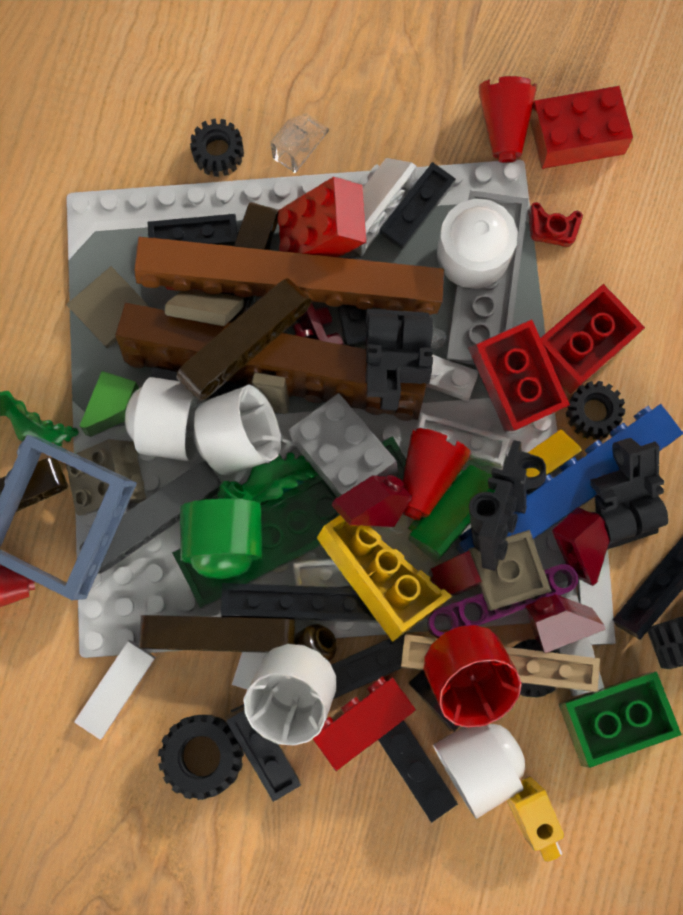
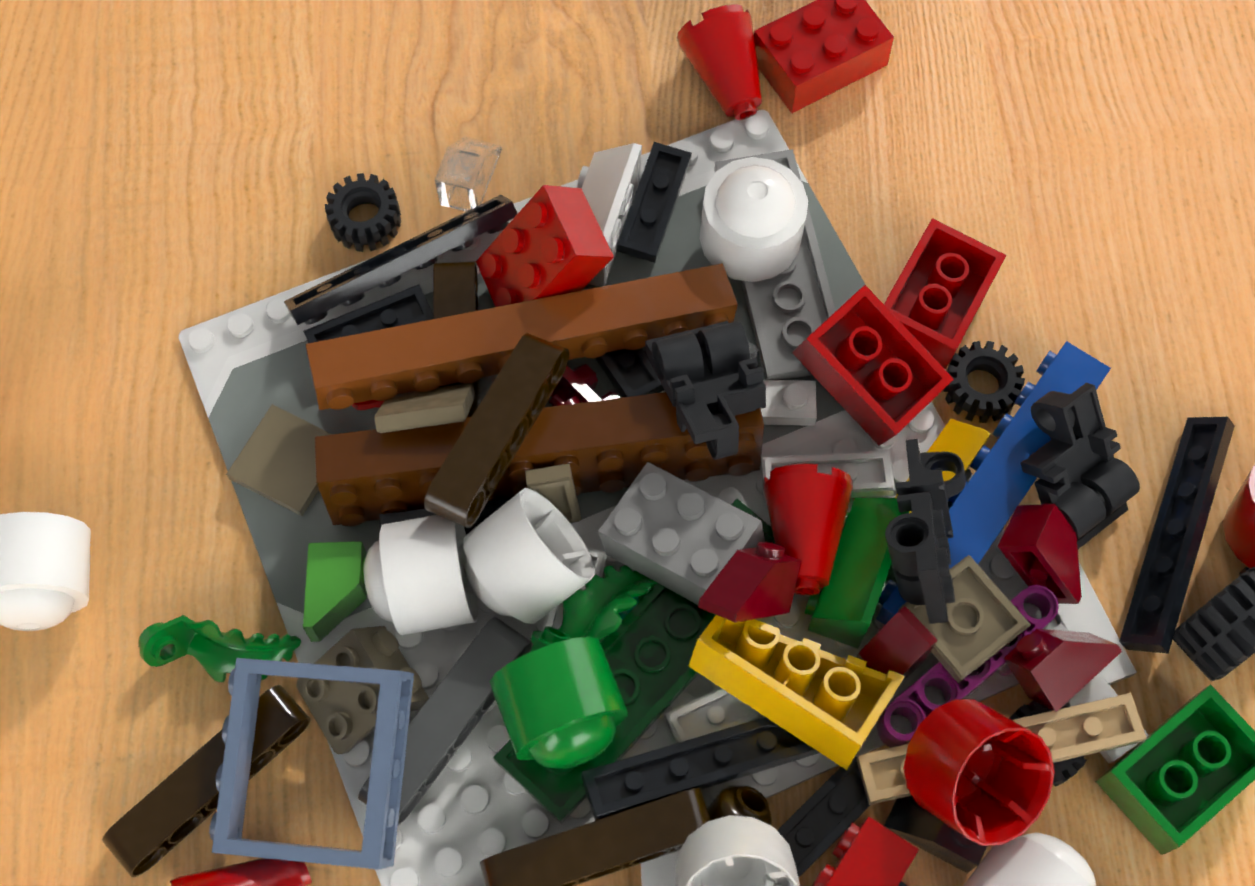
camera: 20 degrees left, 10 degrees down
(220, 193) = (386, 267): none -> black plate
(553, 228) = (836, 178): red piece -> none

